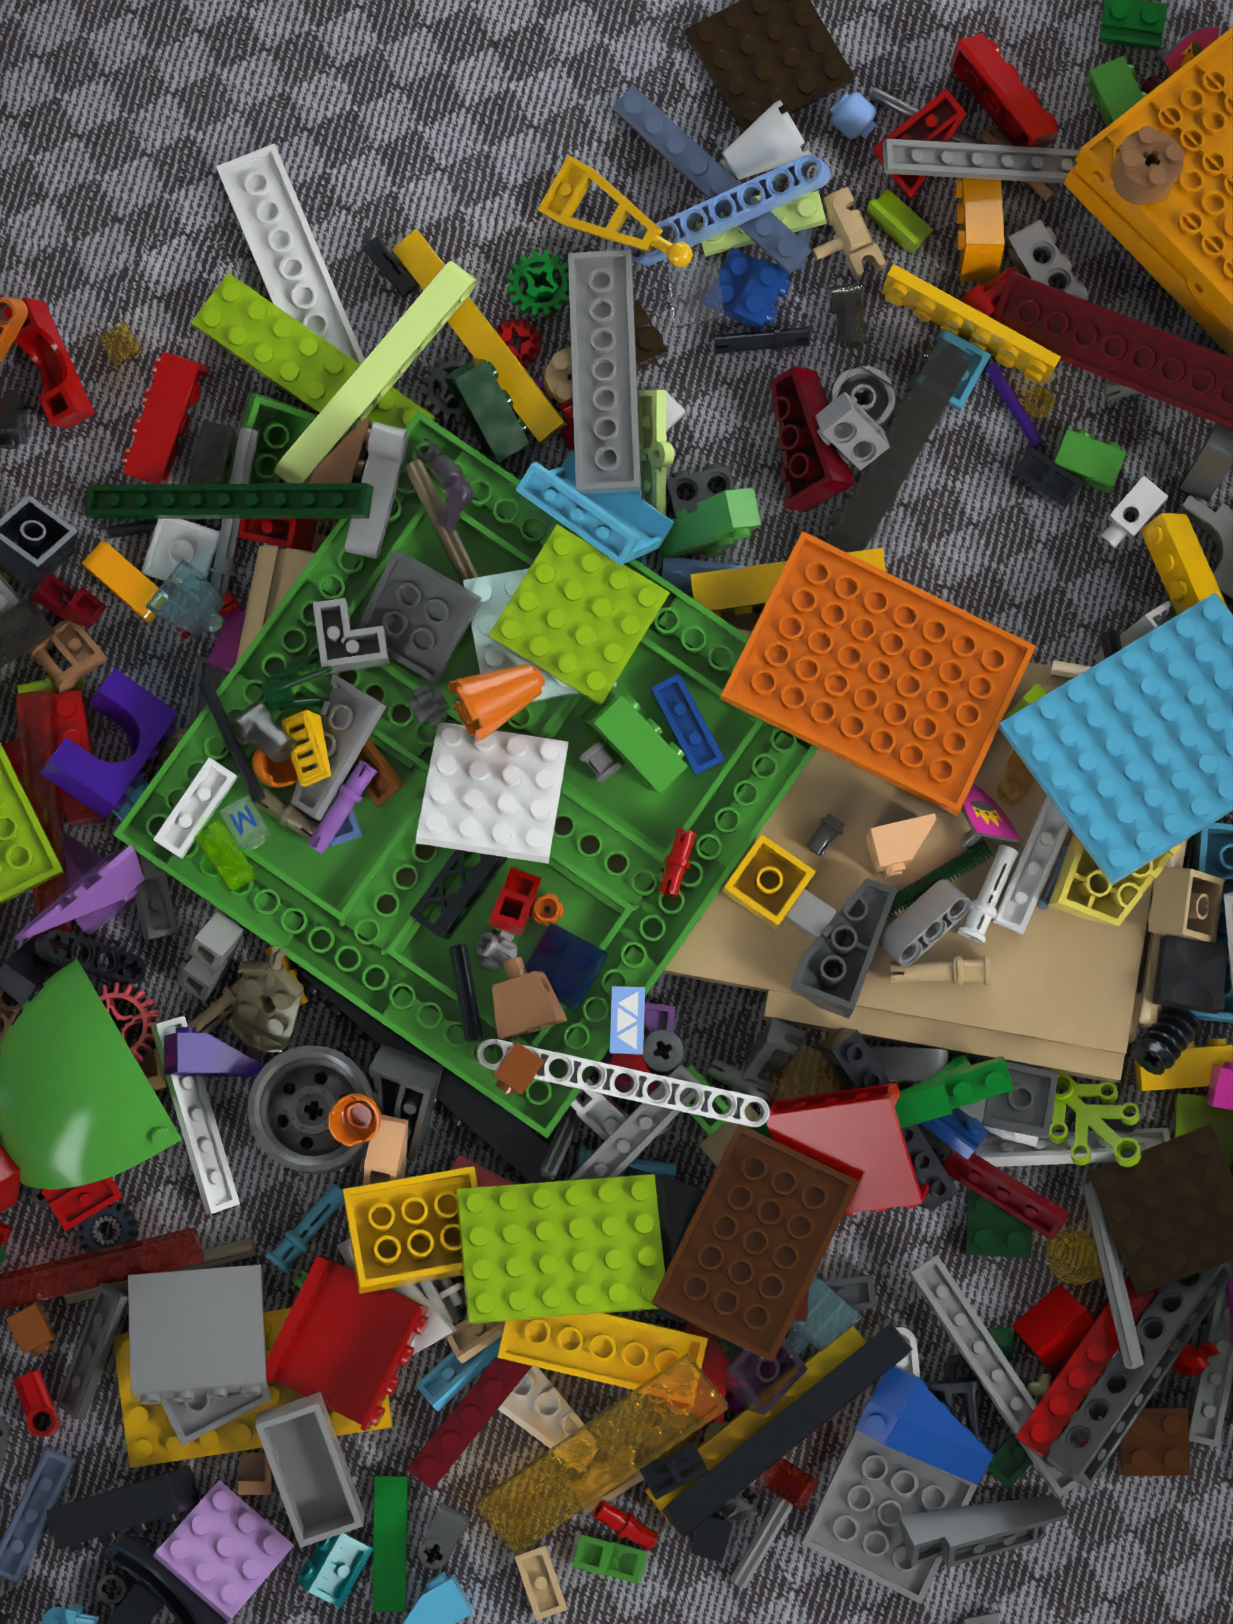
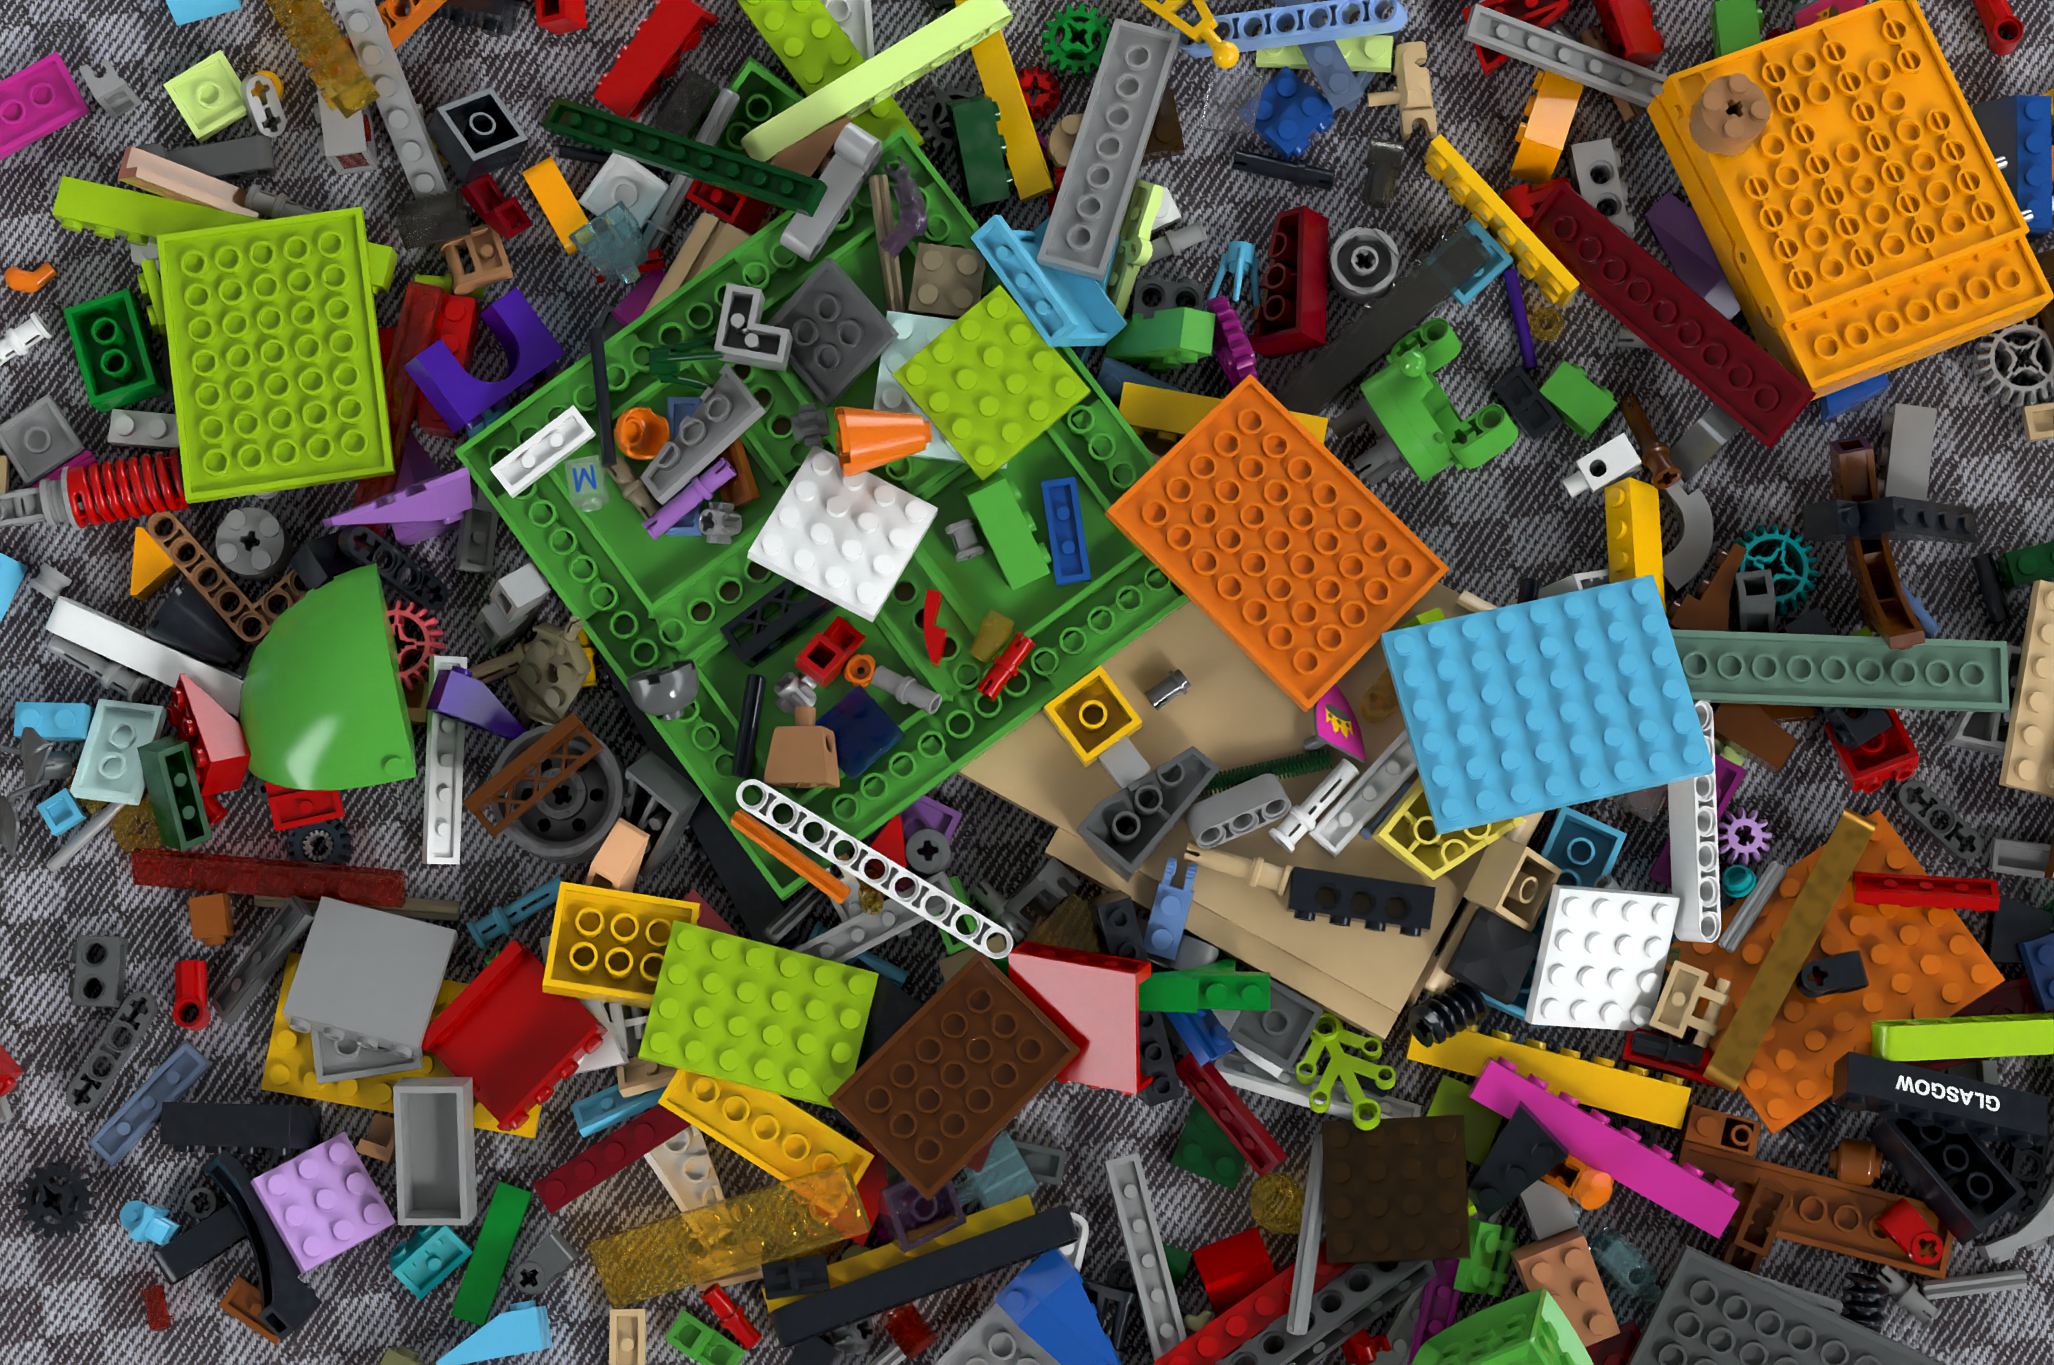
camera: 30 degrees right, 0 degrees up
(225, 856) = (556, 509): clear neon green hinge -> none
(257, 726) = (632, 391): clear smoke piece -> none
(275, 1095) = (525, 764): none -> reddish brown fence
(304, 726) = (671, 405): yellow slope -> none
(354, 1119) = (593, 814): orange hair -> none
(376, 819) = (720, 522): none -> light grey gear
(380, 985) = (665, 689): none -> dark grey cylinder
(506, 536) = (946, 280): none -> dark tan plate
(517, 1069) = (768, 818): dark orange brick -> none
(551, 1099) = (790, 856): none -> orange axle
(595, 913) = (906, 690): none -> light grey pin
(604, 857) = (934, 636): none -> red slope
(625, 1108) = (870, 896): none -> clear yellow pin
(627, 1020) = (901, 808): light blue tile -> none
(655, 839) = (991, 635): none -> clear yellow cone
(691, 432) = (1176, 241): none -> light grey pin
(751, 434) = (1239, 260): none -> medium azure plant
(775, 511) = (1231, 343): none -> magenta gear
(856, 428) = (1344, 289): light grey brick -> none
(894, 1032) = (1169, 912): none -> medium blue hinge
(896, 844) = (1237, 722): light nougat slope -> none
(899, 221) = (1466, 94): lime panel -> none
(958, 520) = (1416, 418): none -> bright green piece
(1108, 948) = (1416, 899): none -> black brick
(1143, 297) = (1691, 253): none -> medium lavender wedge
(1174, 484) = (1653, 452): none -> reddish brown pin

